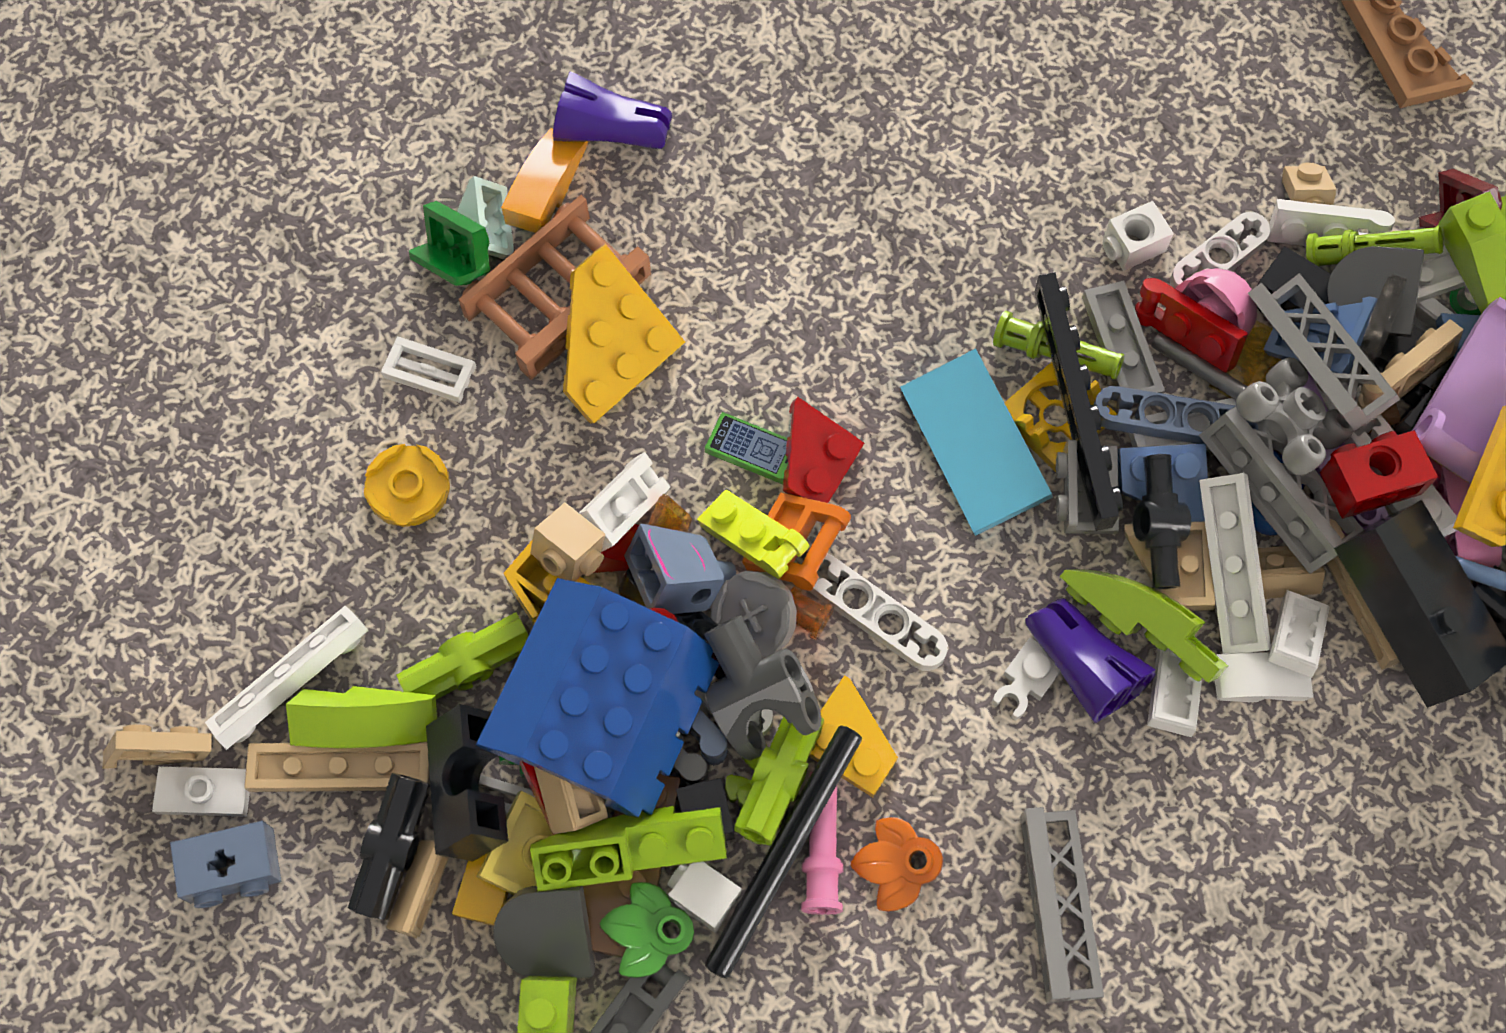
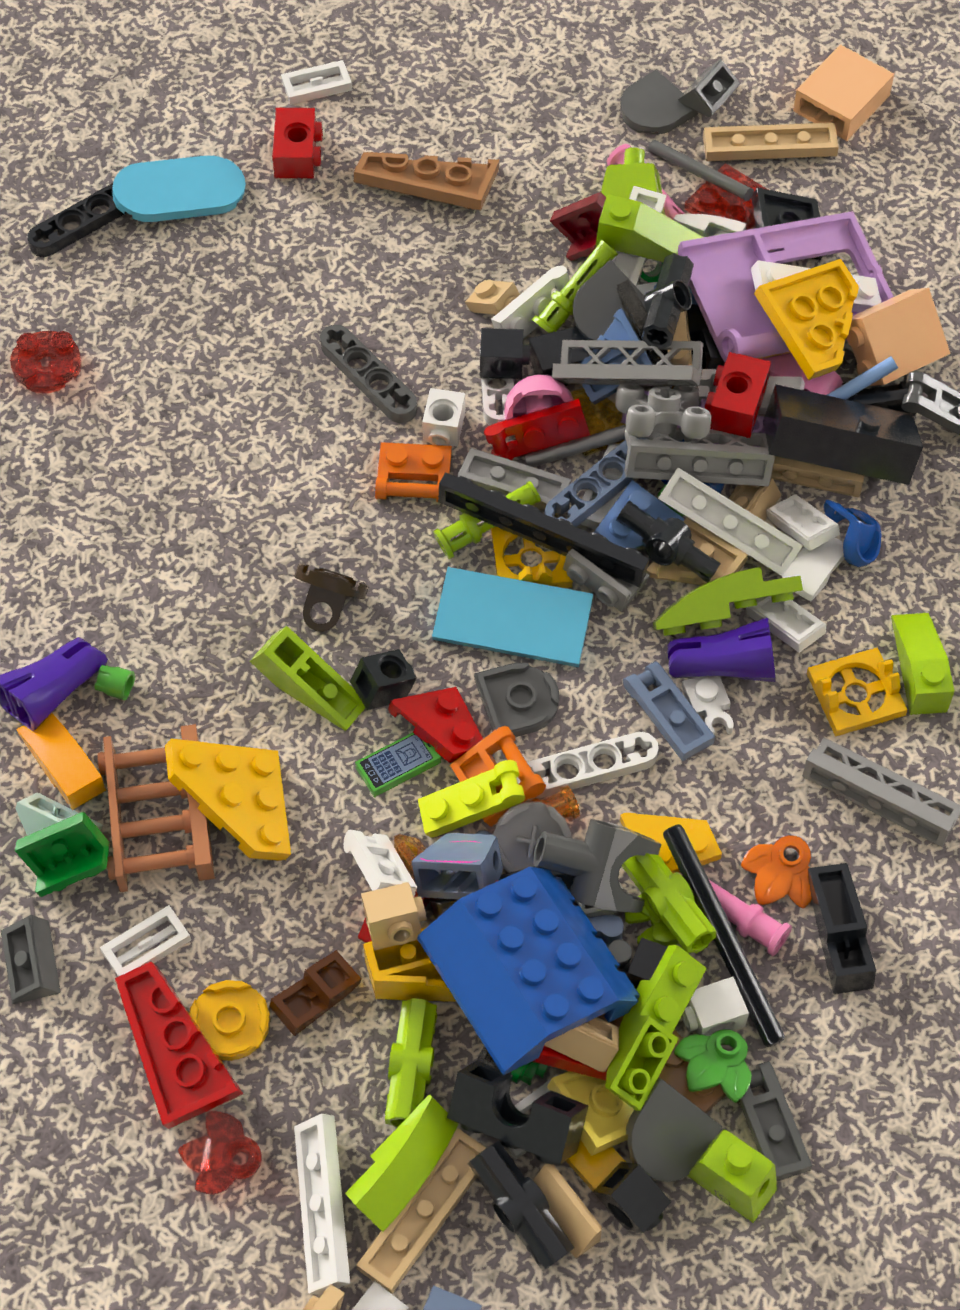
camera: 55 degrees left, 10 degrees down
(278, 560) = (214, 1154): none -> clear red plate
(341, 463) = (174, 1052): none -> red wing
(353, 294) = (30, 959): none -> dark grey slope
(462, 940) = (633, 1197): none -> black brick
(479, 536) = (318, 991): none -> reddish brown slope
(650, 167) = (115, 681): none -> bright green hose
(772, 319) = (308, 678): none -> lime slope
(802, 377) = (382, 678): none -> black brick
(875, 265) = (327, 588): none -> dark brown tile
(877, 958) = (841, 928): none -> black slope
(897, 504) = (518, 697): none -> dark grey tile
(988, 648) = (669, 711): none -> sand blue plate
(1068, 243) = (411, 463): none -> orange plate
(1132, 142) = (370, 372): none -> dark grey beam
(1197, 804) = (871, 660): none -> yellow piece
(1236, 851) = (922, 664): none -> lime slope
(1246, 234) = (503, 353): none -> black brick
(1323, 703) = (861, 540): none -> blue piece
(1417, 332) = (667, 301): none -> black piece

